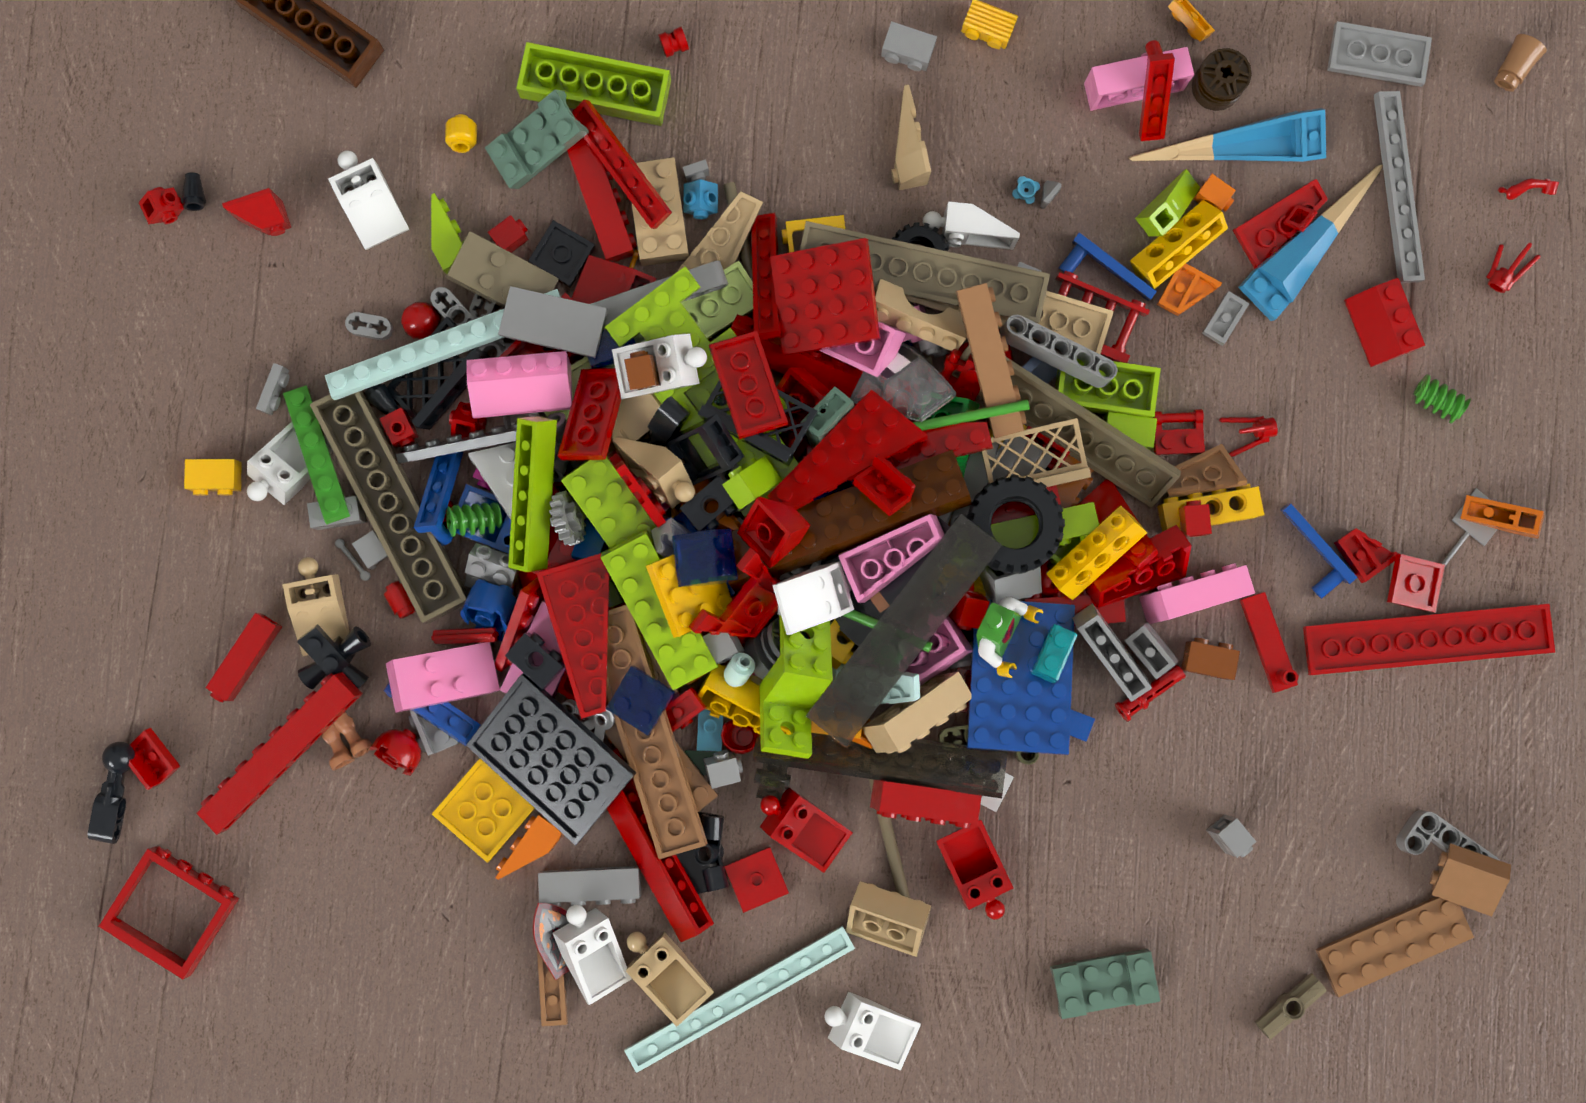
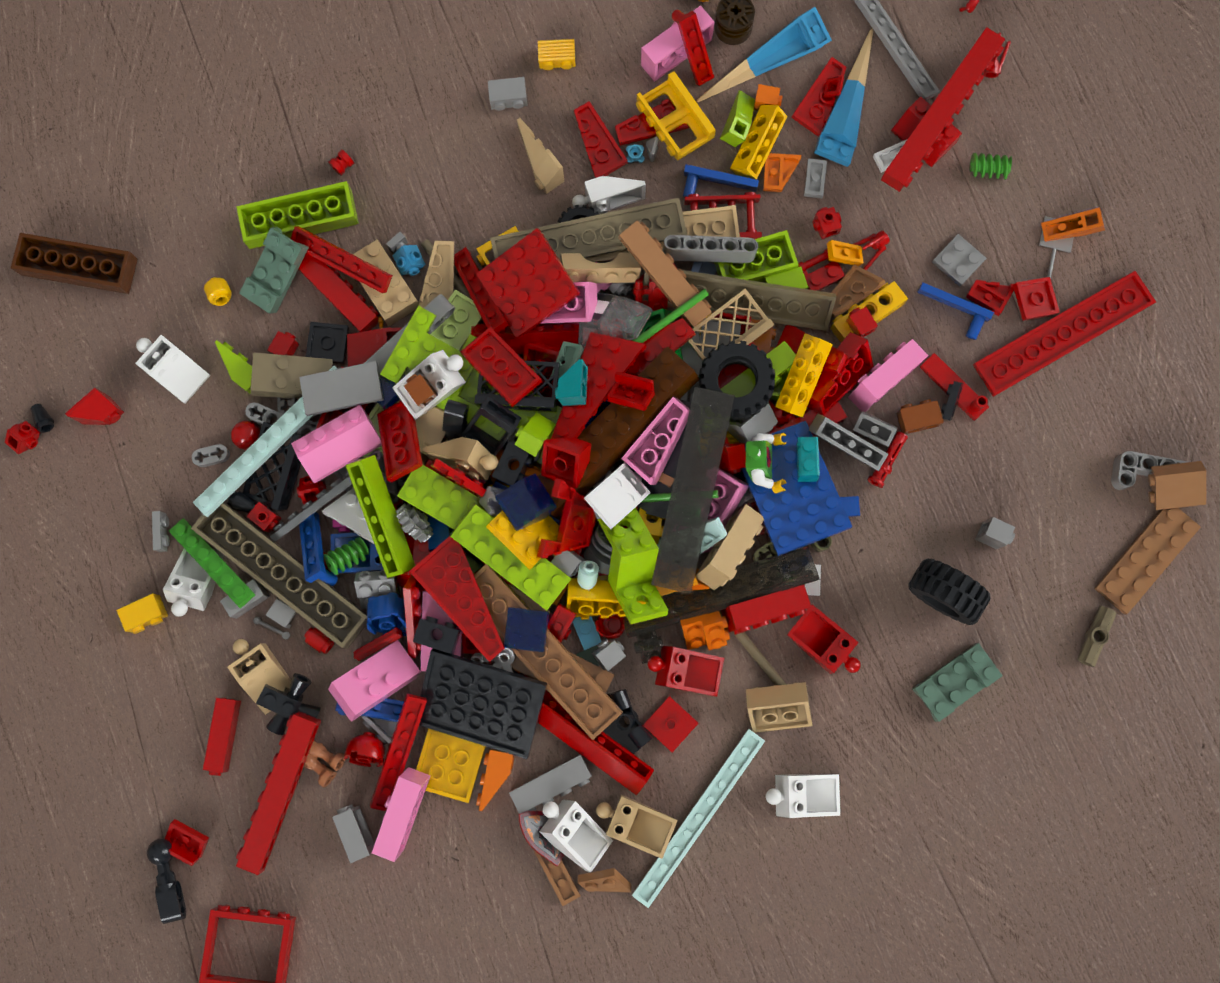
camera: 15 degrees left, 5 degrees down
(344, 838) = (354, 832): none -> light grey window
(406, 841) = (400, 814): none -> bright pink brick
(433, 770) = (398, 749): none -> red plate
(601, 1020) = (604, 881): none -> medium nougat wing
(821, 446) = (573, 385): none -> teal slope
(845, 792) = (705, 630): none -> orange plate
(989, 160) = (599, 144): none -> red wing
(1072, 162) = (638, 129): none -> red wing
(1110, 168) = (686, 112): none -> yellow window
(1144, 880) = (949, 591): none -> black tyre
(1213, 378) = (827, 222): none -> red brick
(1216, 425) = (844, 253): none -> light orange plate
(1264, 651) = (954, 391): none -> black plate
(1332, 333) = (886, 156): none -> white plate
(1348, 494) = (959, 260): none -> light grey plate
(1417, 307) = (942, 110): none -> red brick

